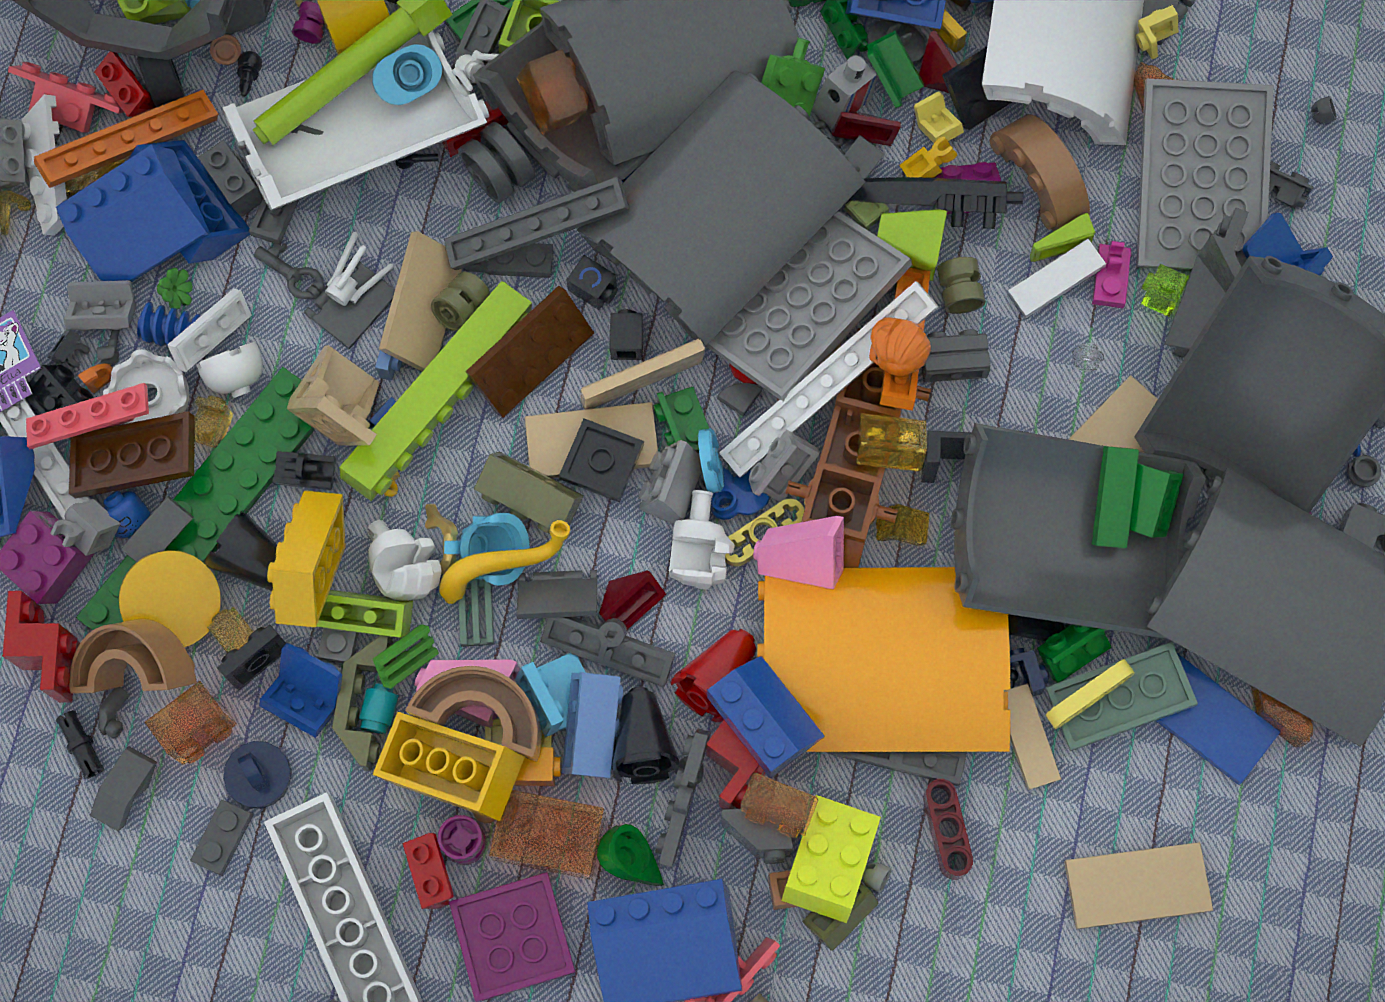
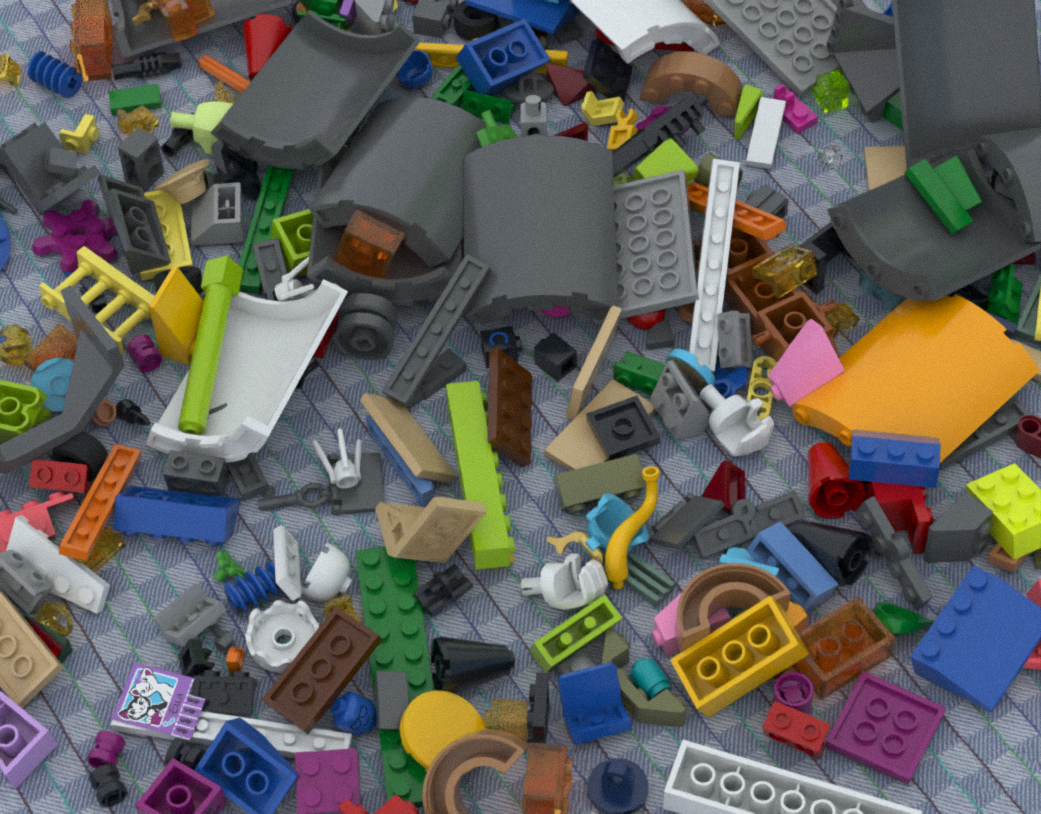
camera: 45 degrees left, 20 degrees down
(87, 416) = (270, 665): coral bracket -> none
(87, 527) = (342, 732): light grey brick -> none
(134, 216) = (162, 537): blue slope -> none
(307, 559) = (517, 615): yellow brick -> none
(407, 74) = (251, 322): medium azure piece -> none
(408, 660) = (634, 629): bright green tile -> none
(459, 300) = (432, 417): olive wheel -> none
(779, 805) = (963, 487): clear orange bracket -> none
(894, 67) = (556, 101): green panel -> none
(898, 346) = (745, 197): orange hair -> none

